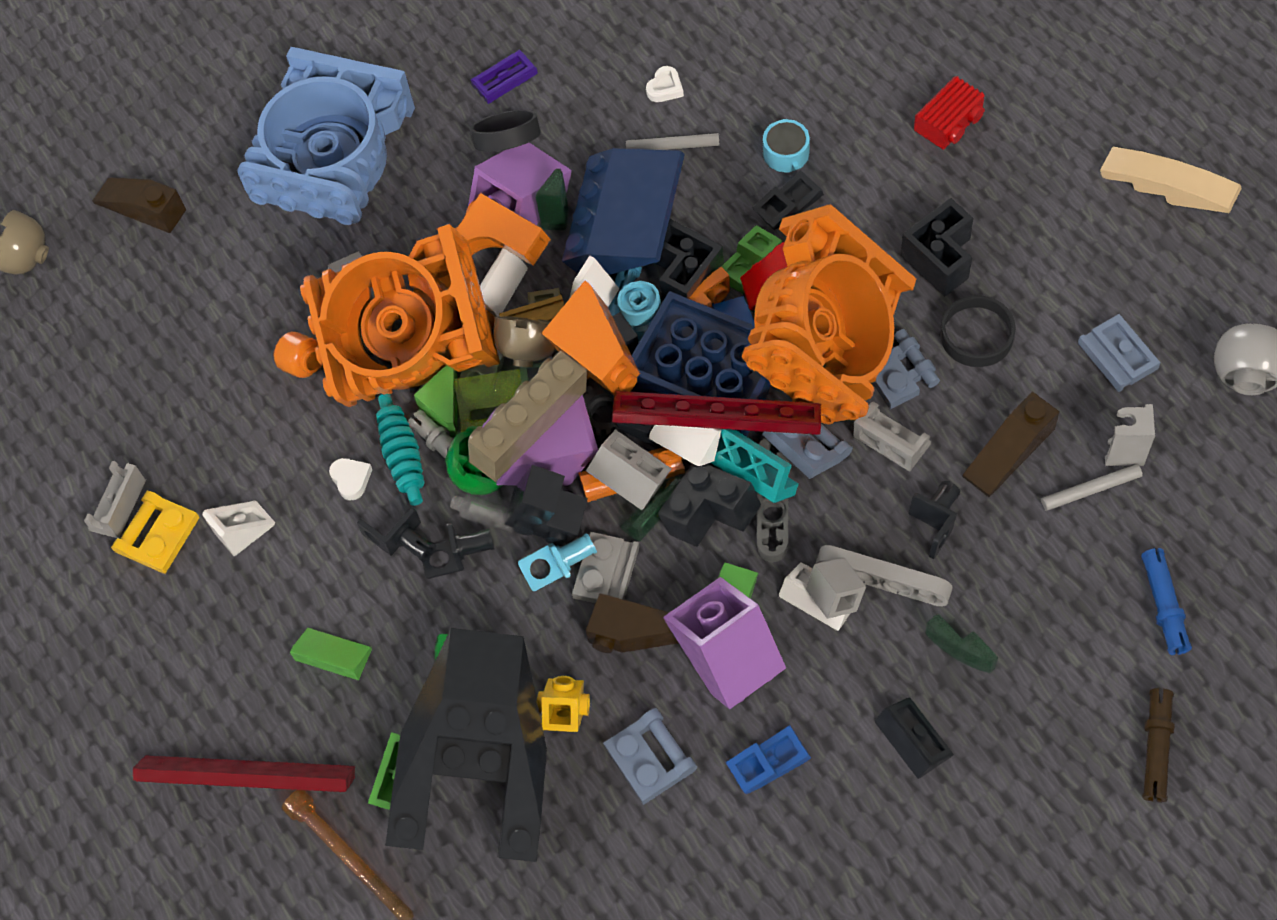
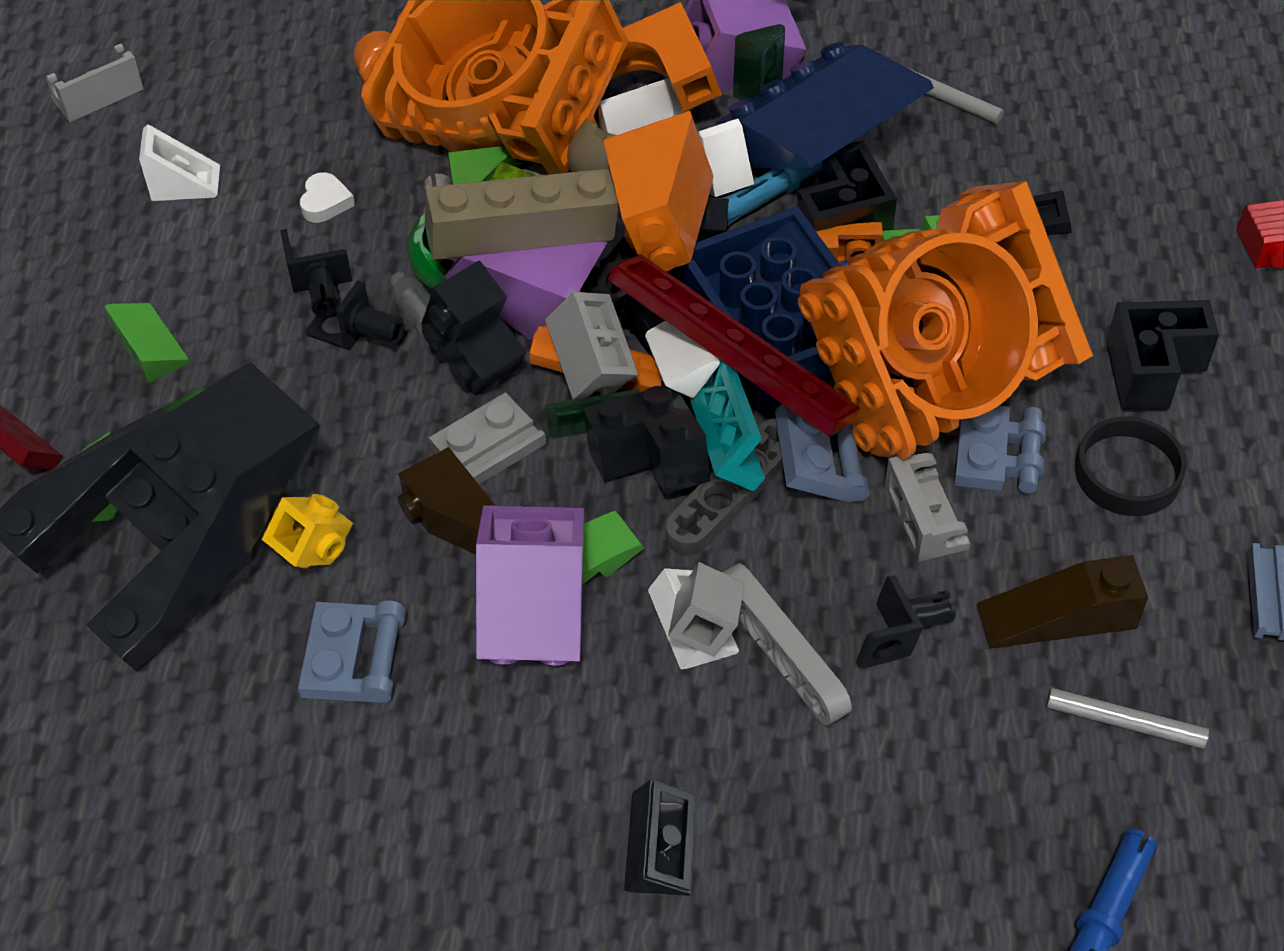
camera: 30 degrees right, 10 degrees down
(164, 537) = (104, 144): yellow plate -> none
(400, 449) = (393, 199): teal piece -> none
(559, 560) = (442, 393): medium azure bracket -> none
(639, 305) = (754, 199): medium azure wheel -> none
(665, 85) = (986, 38): white tile -> none
(769, 760) = (467, 747): blue slope -> none
(786, 145) = (1068, 159): piece -> none
(970, 650) = (805, 782): clear green slope -> none
(1132, 443) = (1214, 687): light grey hinge -> none

